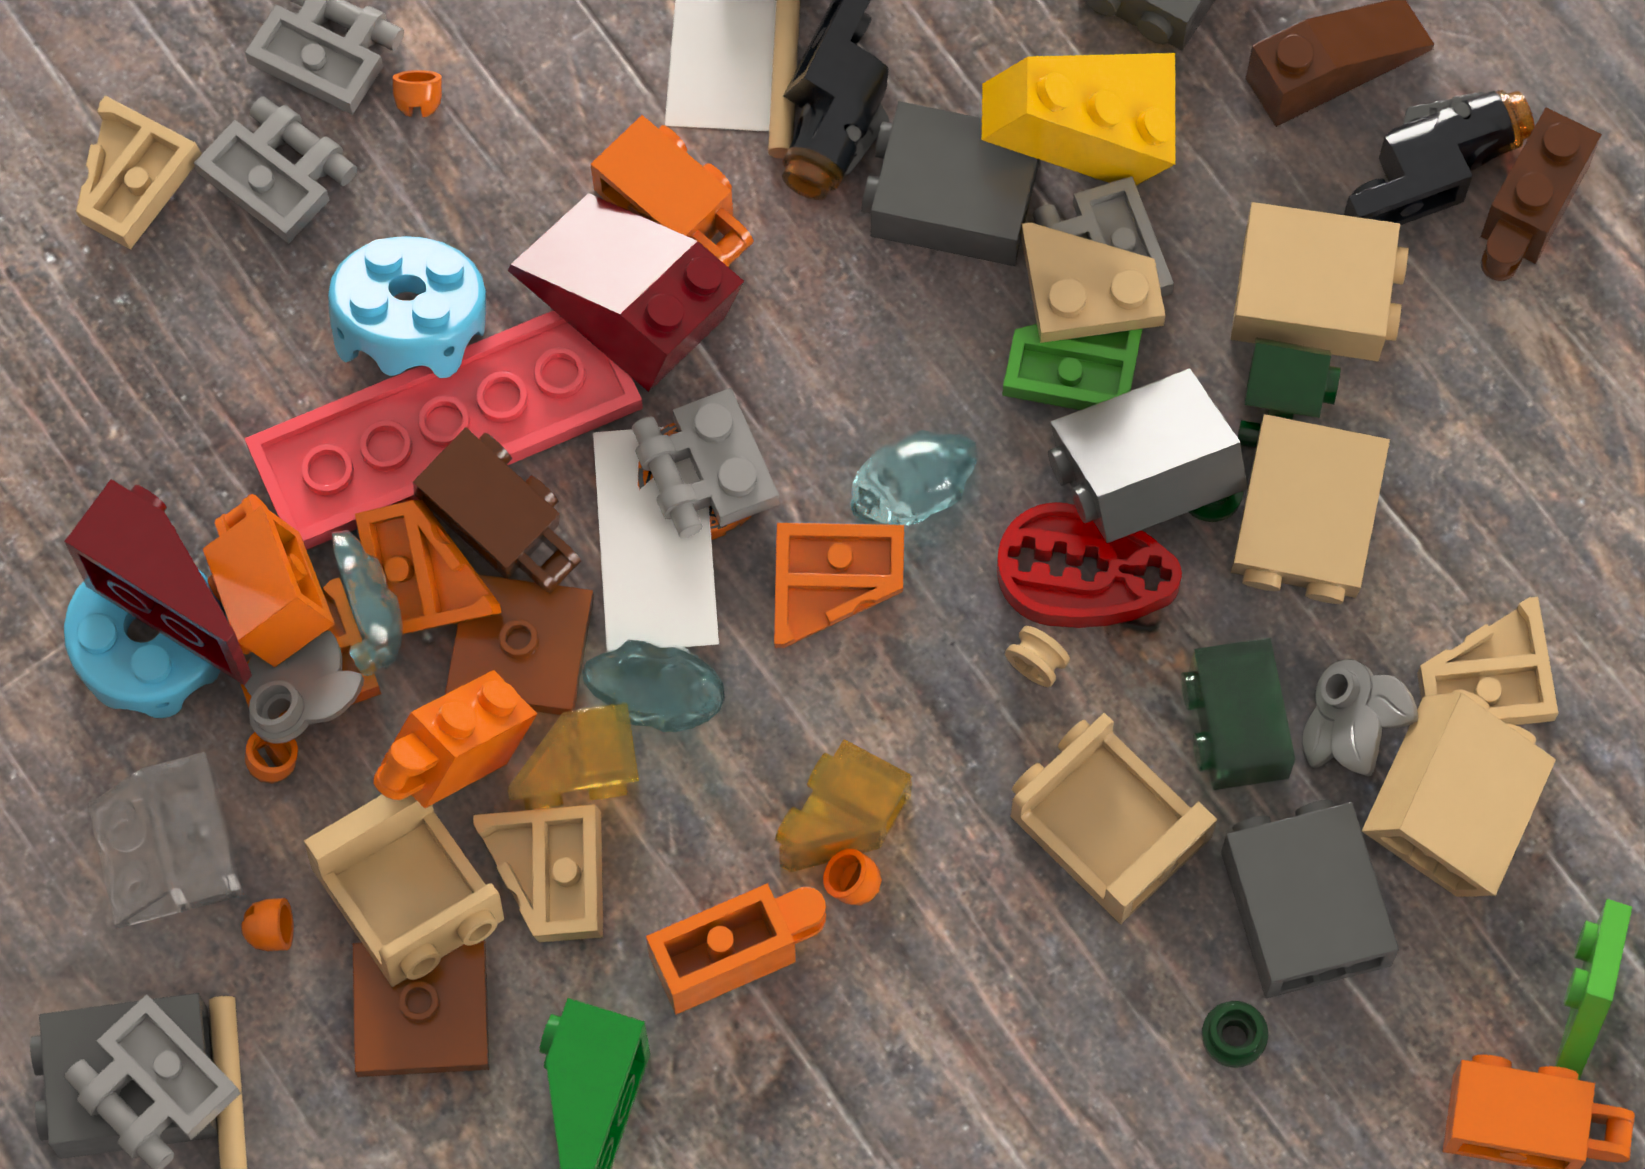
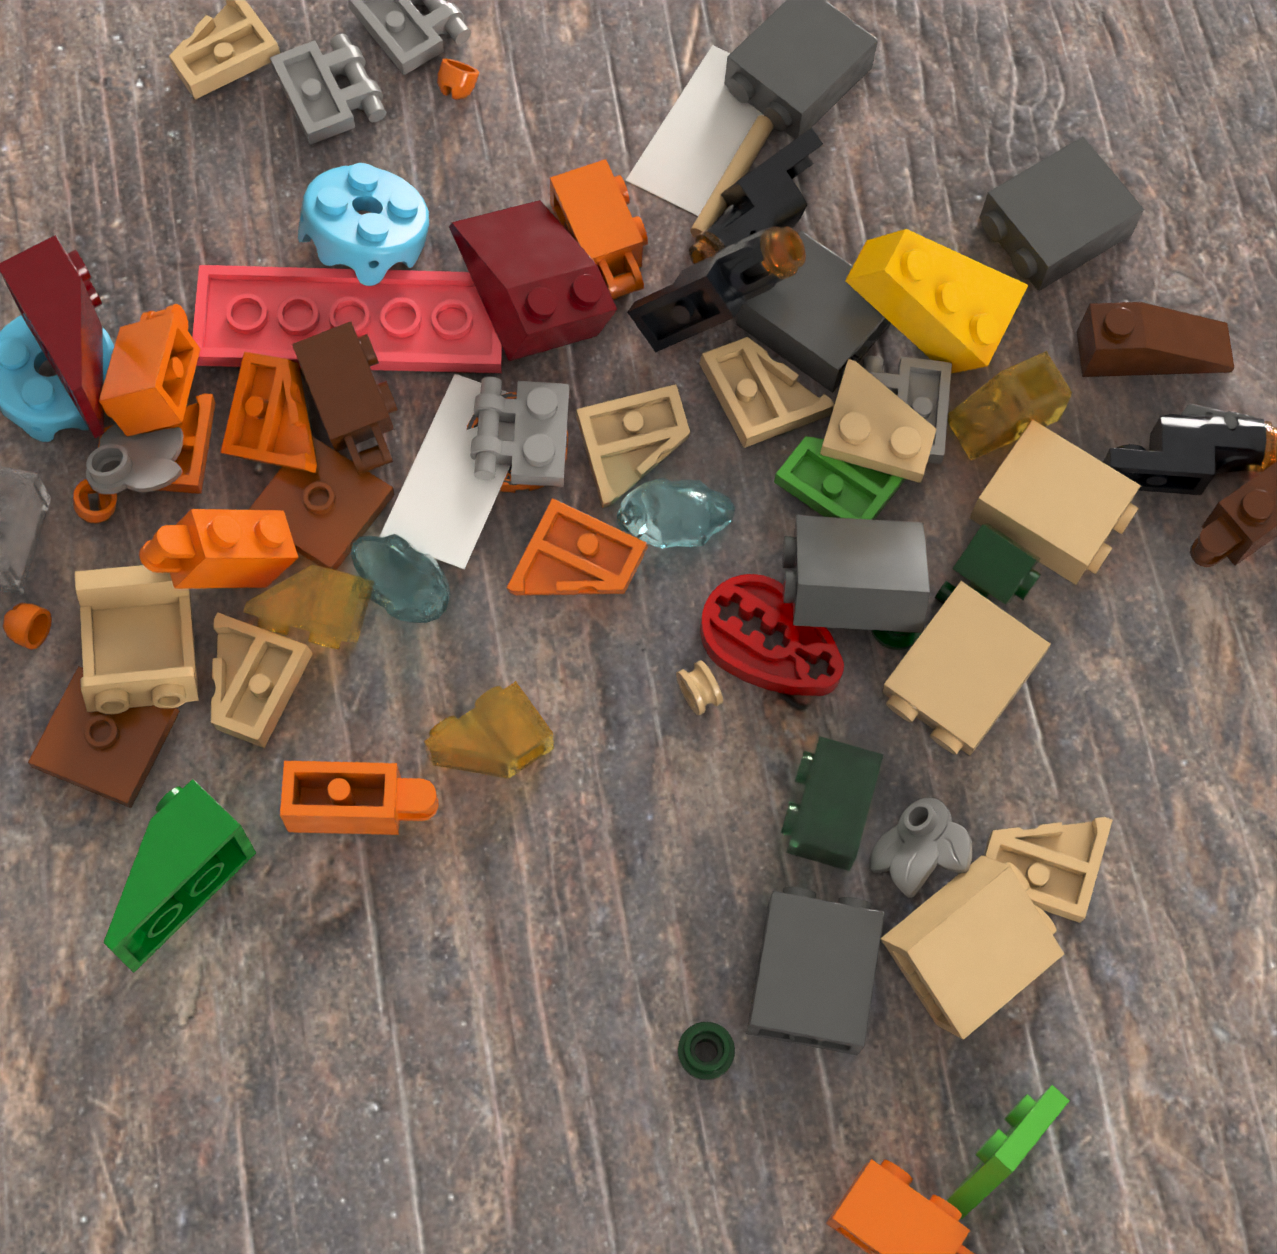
camera: 20 degrees right, 0 degrees up
(371, 603) = (218, 420): clear light blue arm -> none
(824, 417) = (631, 438): none -> tan wing
(842, 207) = (718, 286): none -> black plate
(852, 877) = (472, 790): orange hinge -> none
(938, 302) = (759, 392): none -> tan wing
(1108, 818) = (692, 836): tan panel -> none
(1218, 197) = (1008, 404): none -> clear yellow slope

